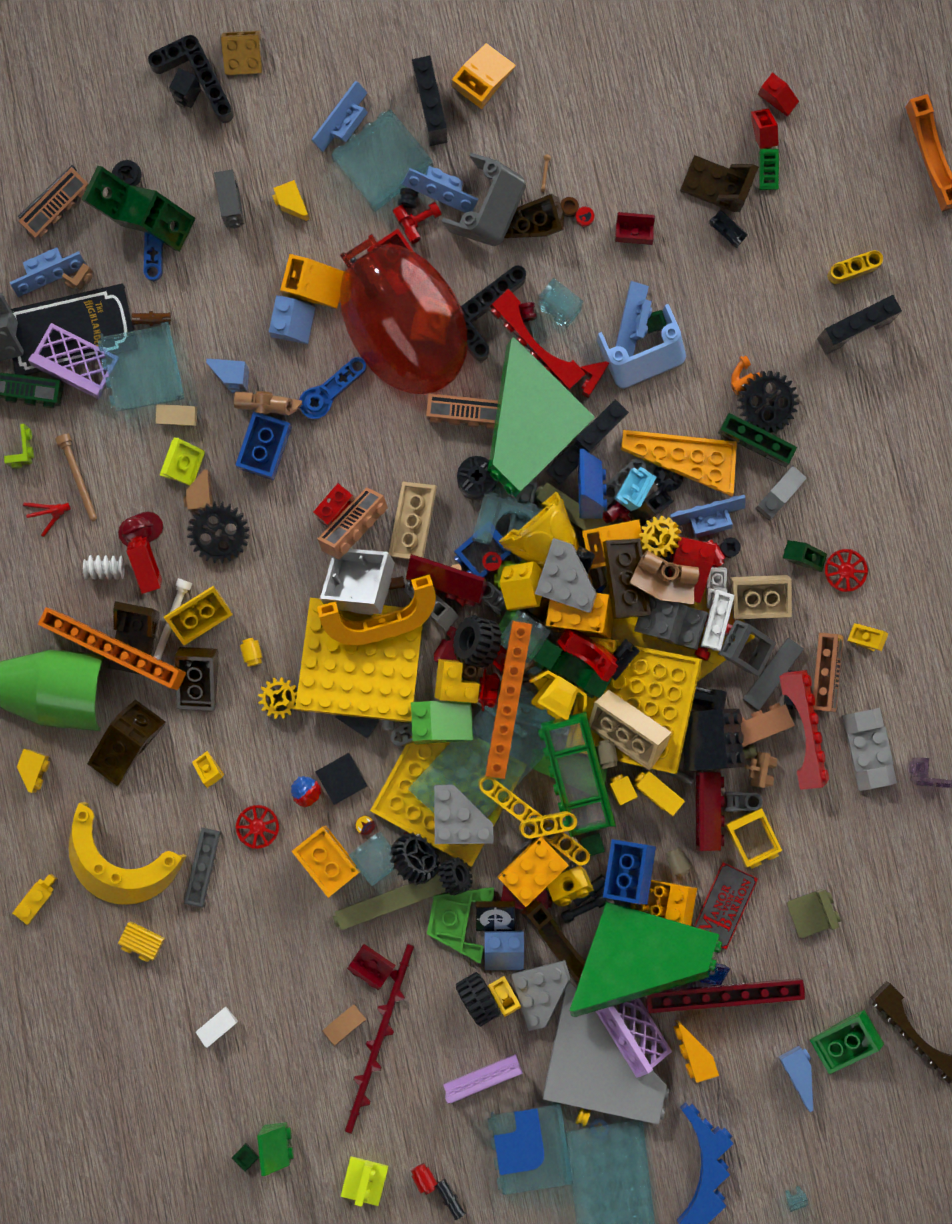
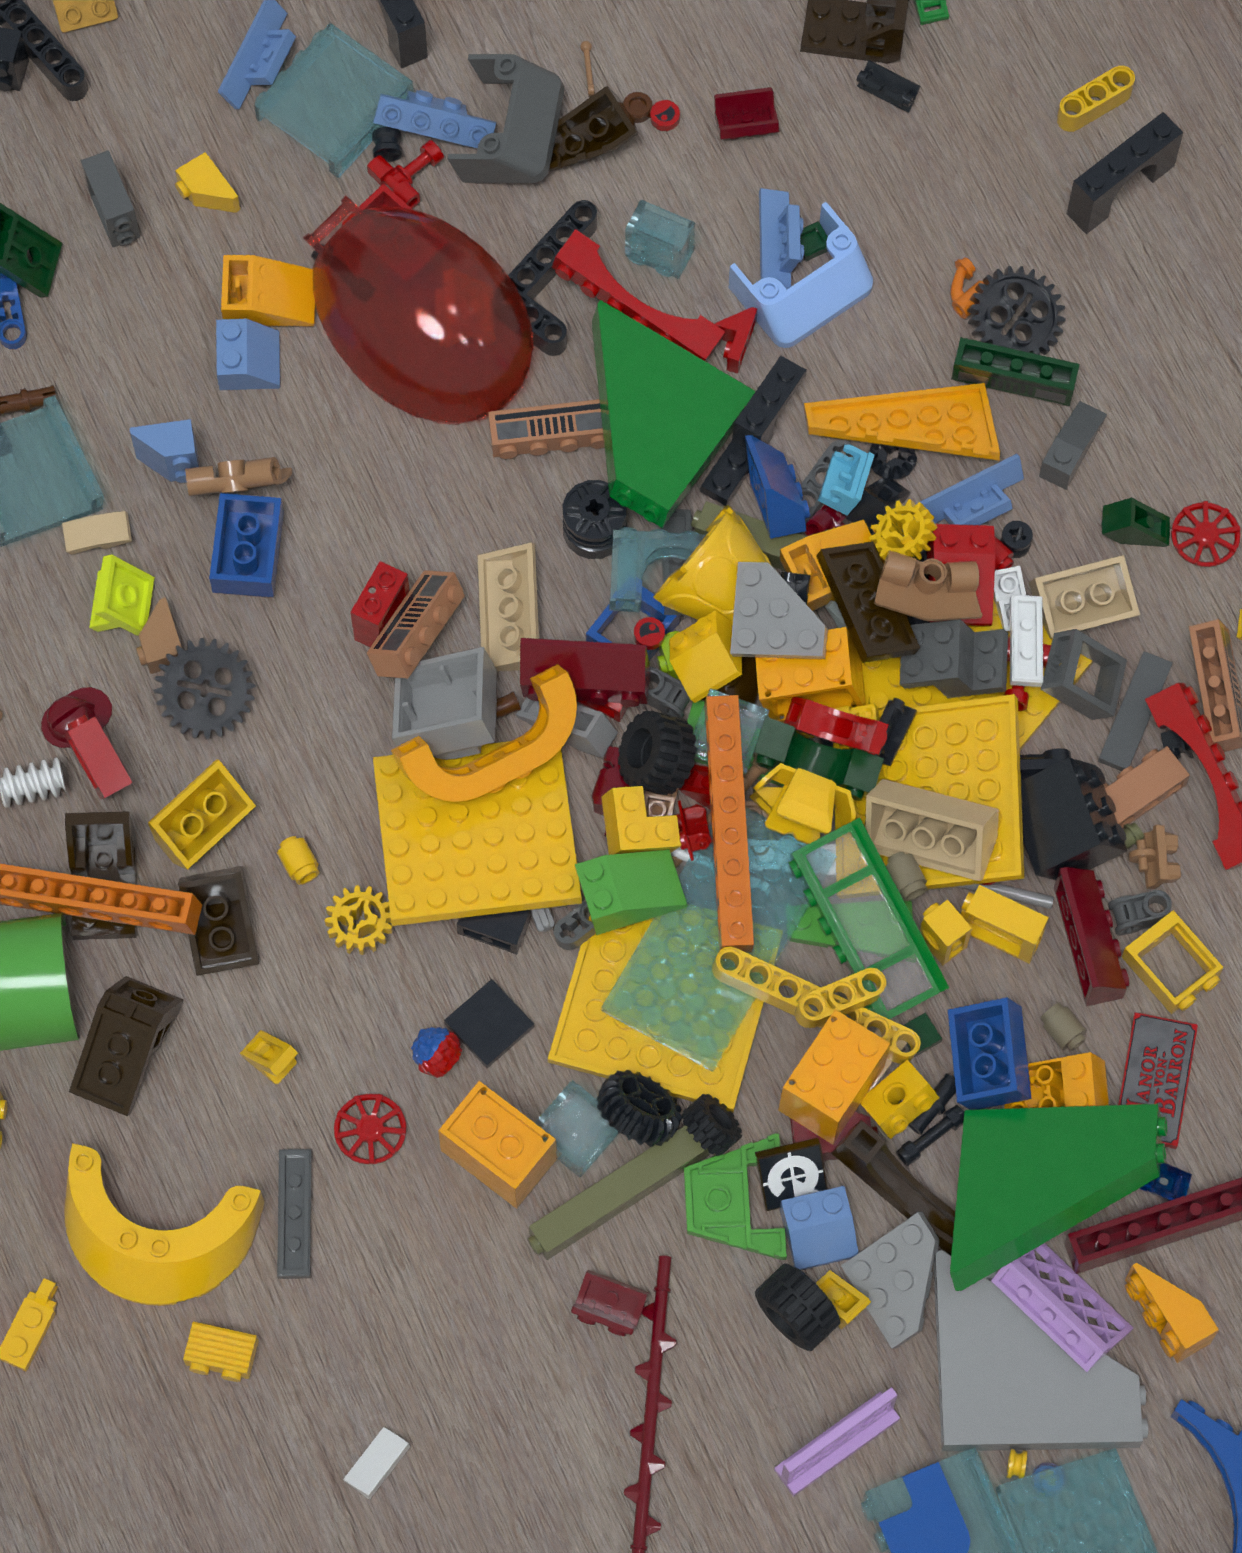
camera: 15 degrees left, 15 degrees down
(182, 587) = (164, 785): white piece -> none
(329, 390) = (331, 444): blue beam -> none
(344, 1025) = (586, 1407): medium nougat slope -> none
(365, 825) = (544, 1086): tile -> none
(459, 819) = (695, 1031): light grey plate -> none
(527, 311) = (612, 261): dark red wheel -> none

